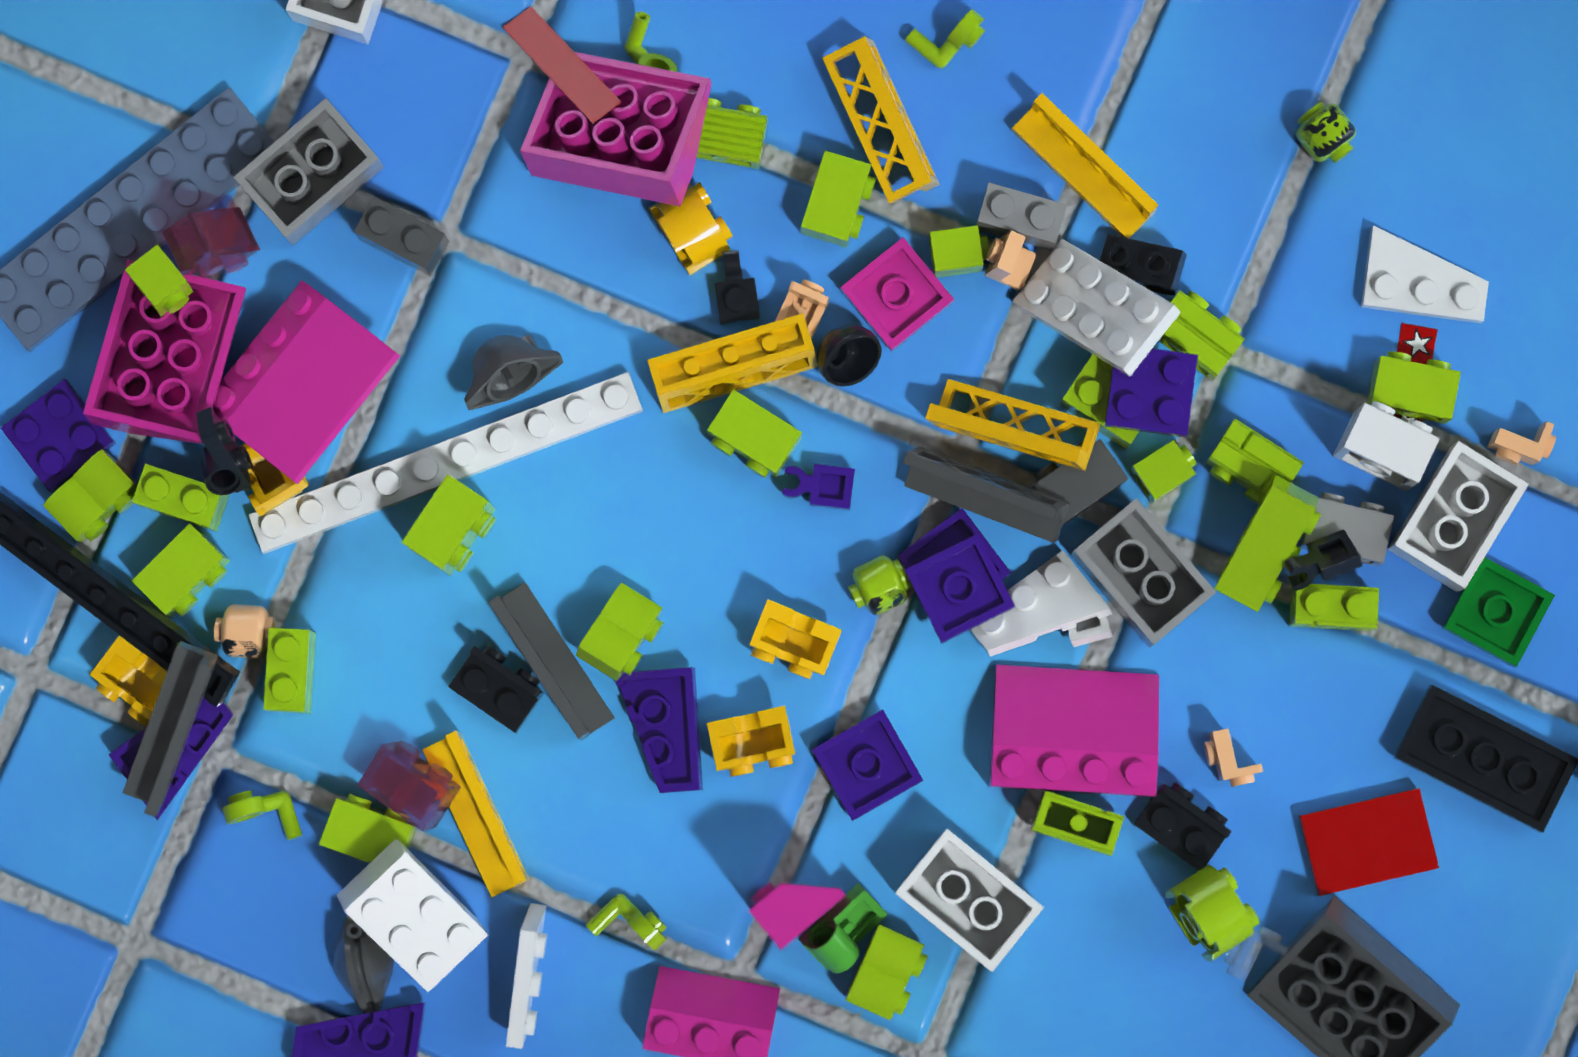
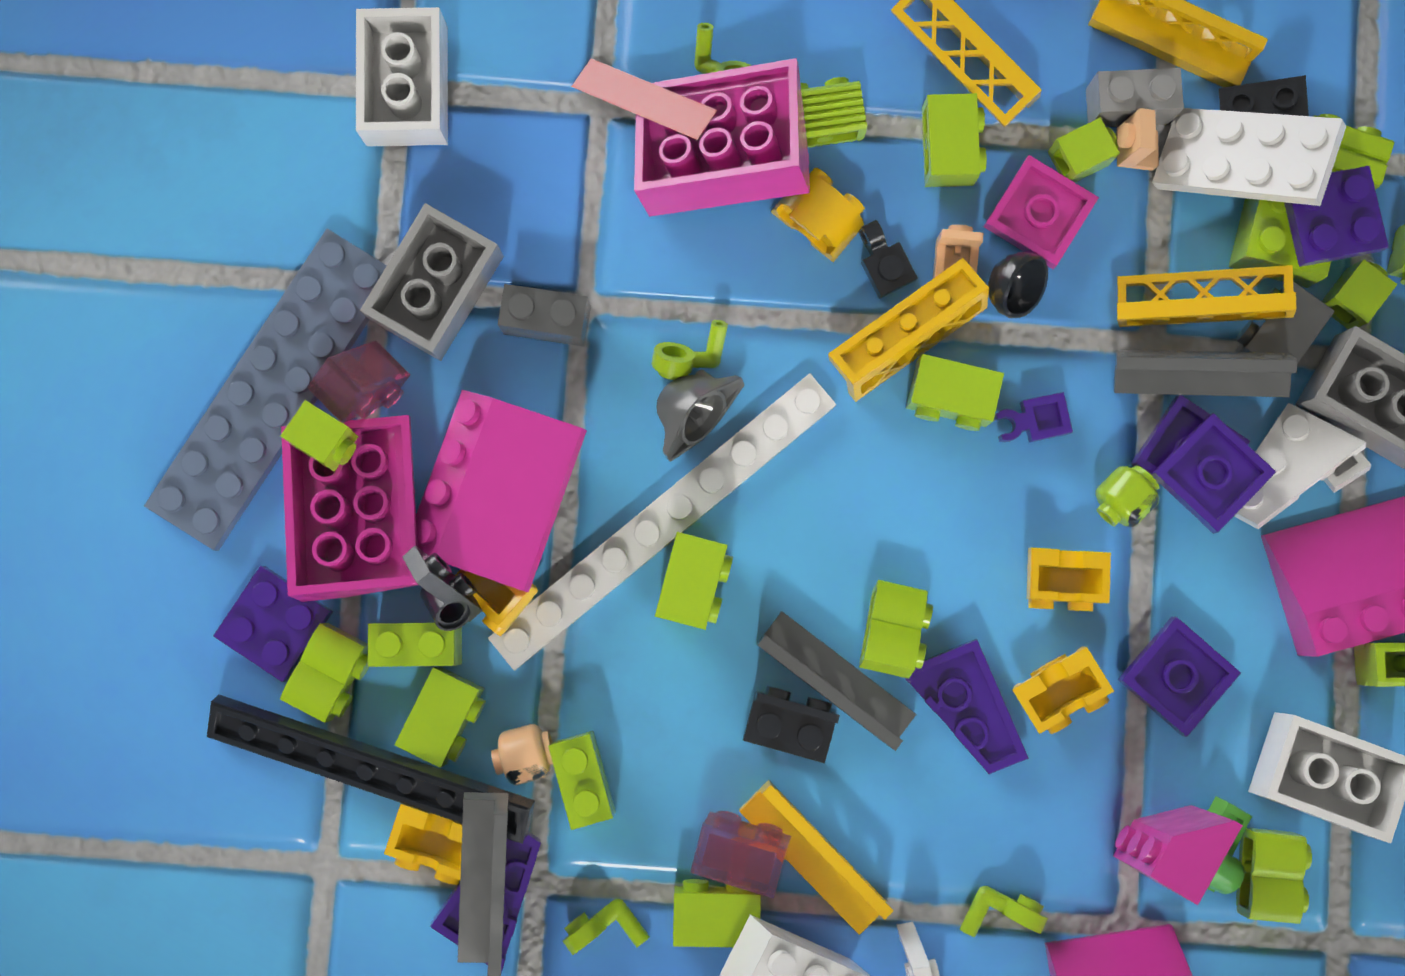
camera: 25 degrees left, 0 degrees up
(510, 318) = (677, 360): none -> lime plate

